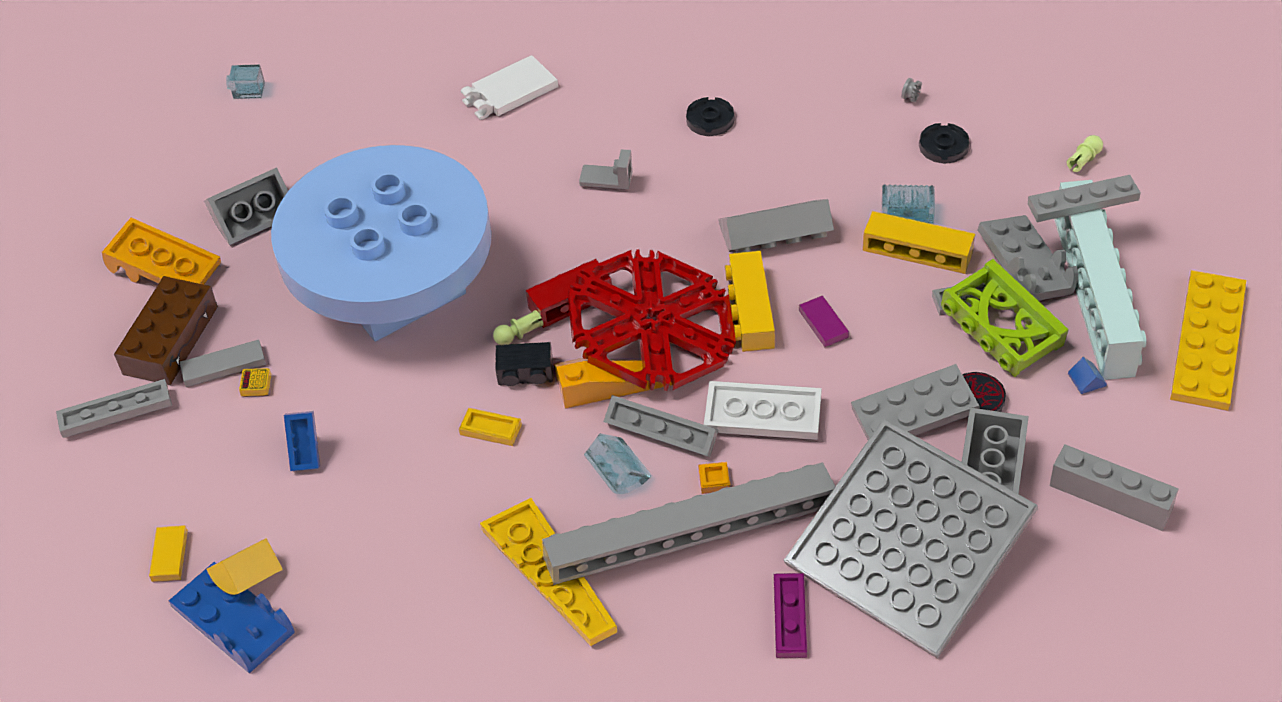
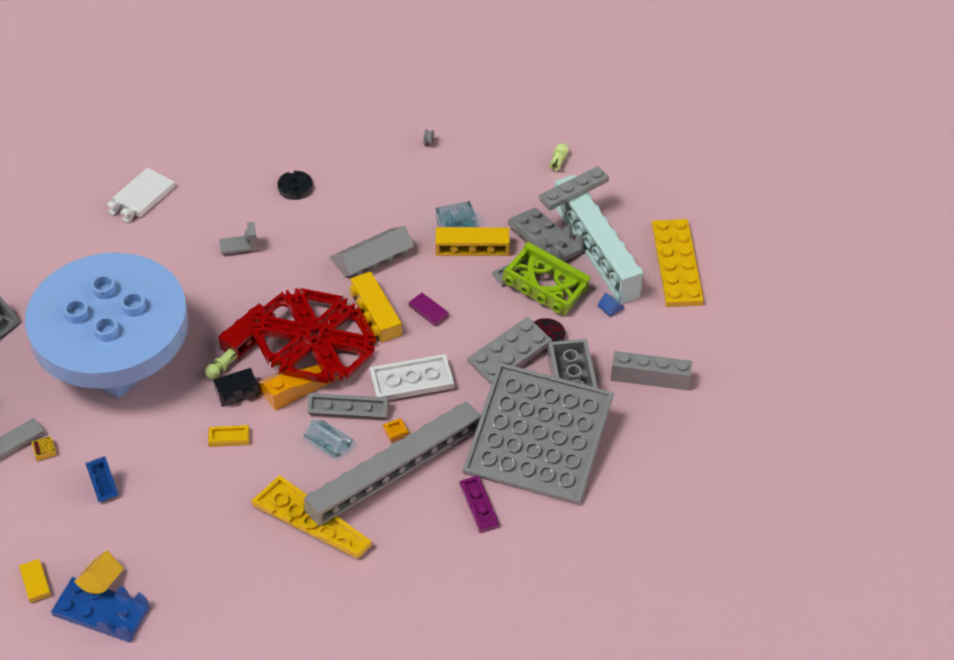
camera: 25 degrees left, 0 degrees up
(944, 143) = (463, 169): black tile -> none

